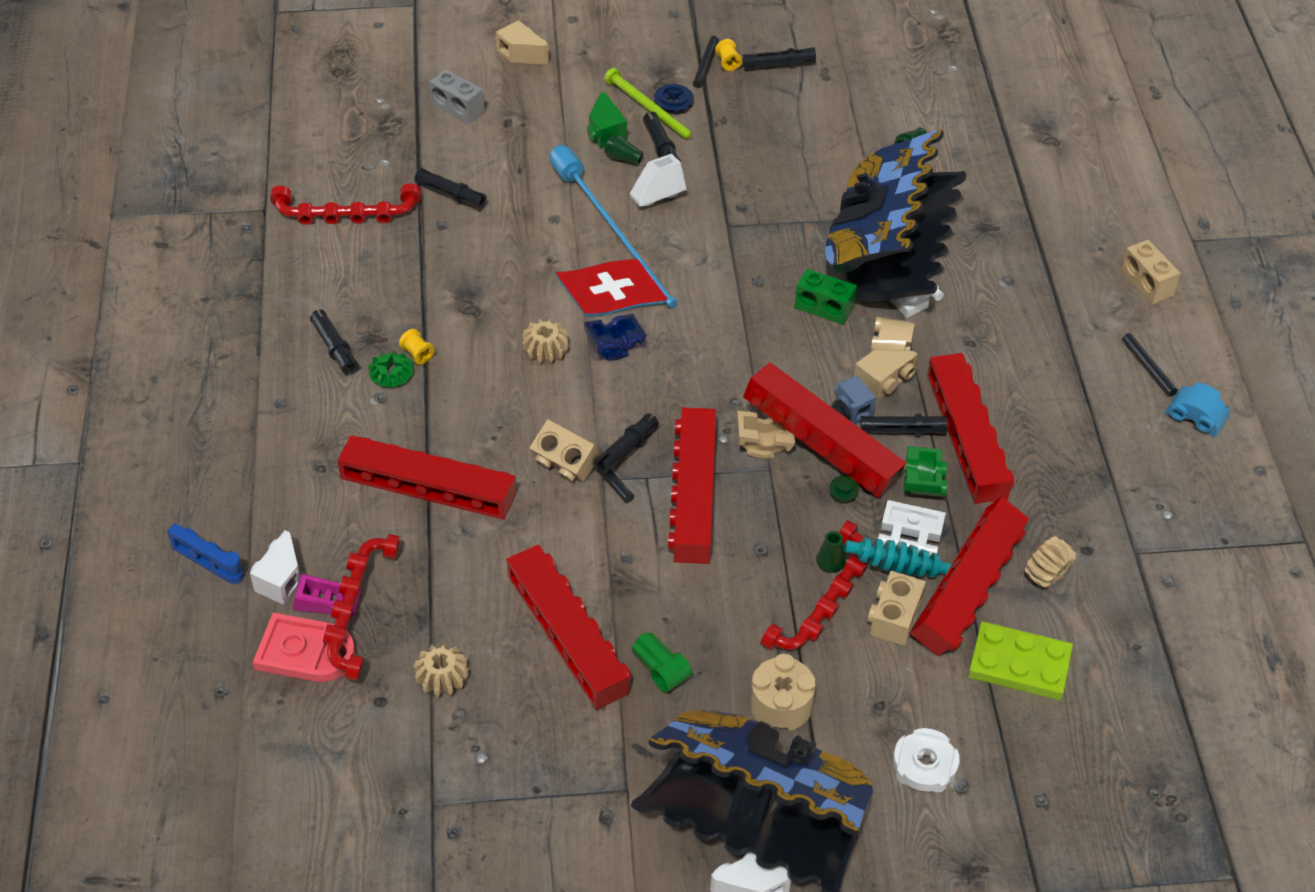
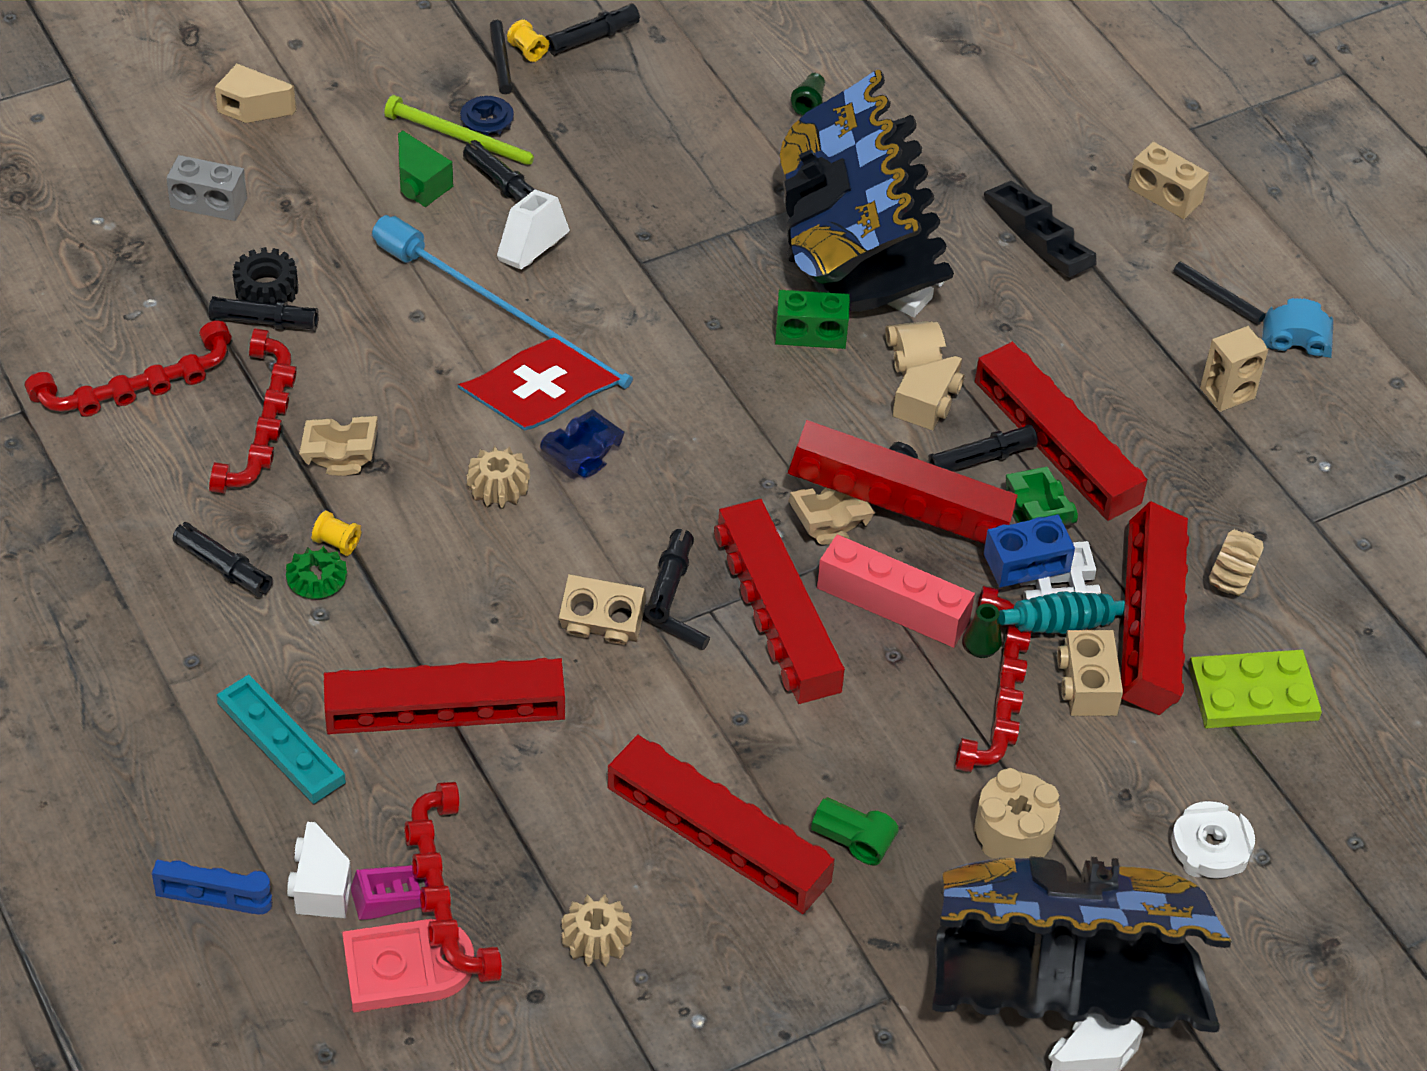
camera: 25 degrees left, 0 degrees up
(305, 471) = (281, 738): none -> teal plate
(411, 263) = (268, 426): none -> red bar
(449, 288) = (338, 446): none -> tan cylinder
(464, 157) = (262, 266): none -> black tyre
(622, 150) = (460, 201): dark green cone -> none
(781, 503) = (895, 590): none -> coral brick
(843, 489) = (954, 551): dark green plate -> none
(856, 397) = (915, 431): sand blue brick -> none
(892, 504) = (1029, 550): none -> blue brick
(1032, 280) = (1034, 224): none -> black slope
(1124, 420) = (1234, 368): none -> tan brick

